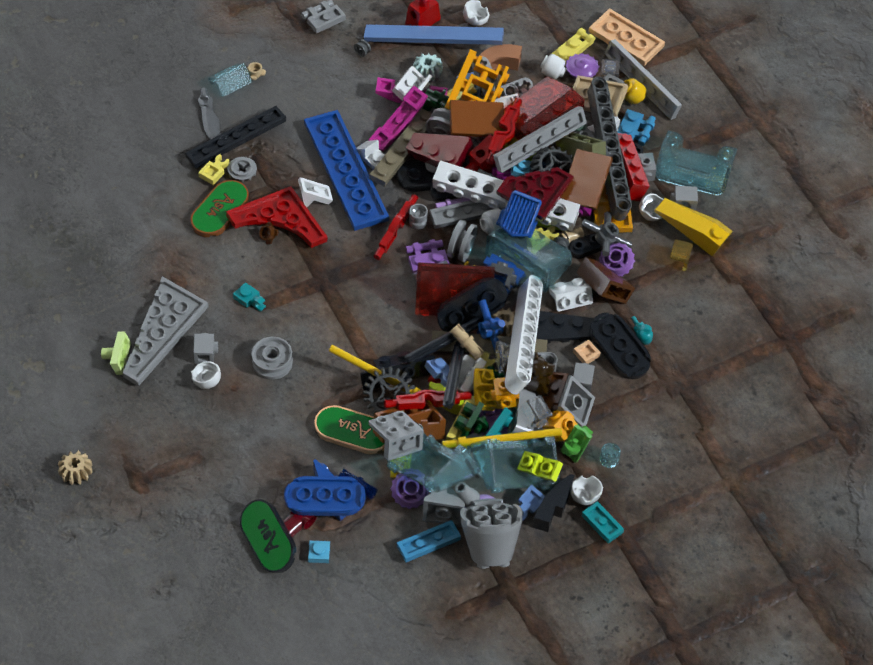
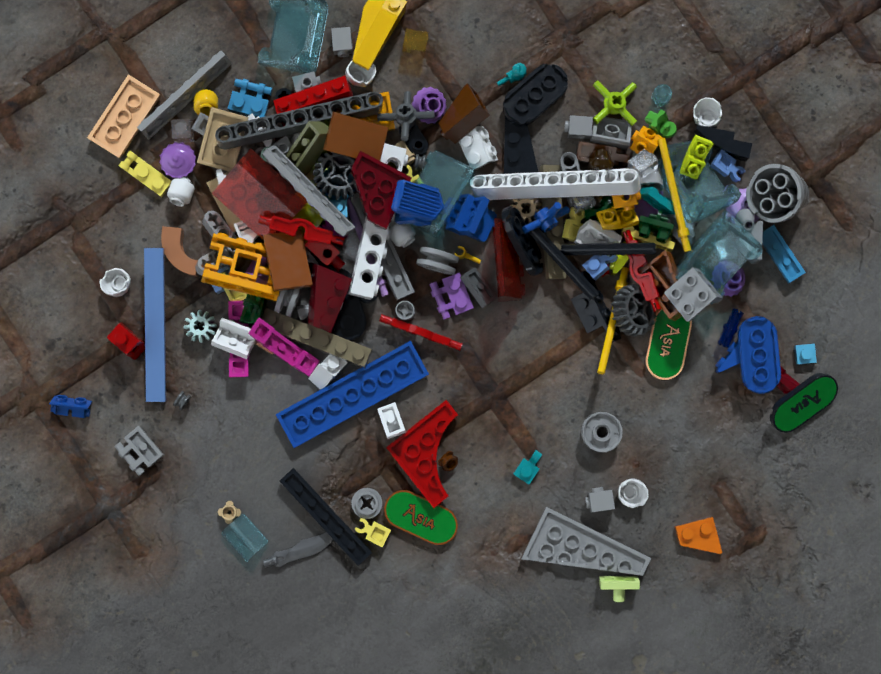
camera: 90 degrees left, 30 degrees up
(75, 467) = (758, 591): tan gear -> none
(150, 431) = (699, 535): none -> orange wing
(467, 341) = (567, 240): tan pin -> none
(503, 270) = (487, 211): dark grey bracket -> none
(586, 352) = (547, 126): light nougat plate -> none
(602, 522) = (736, 96): teal plate -> none
(608, 405) = (610, 98): none -> lime bar

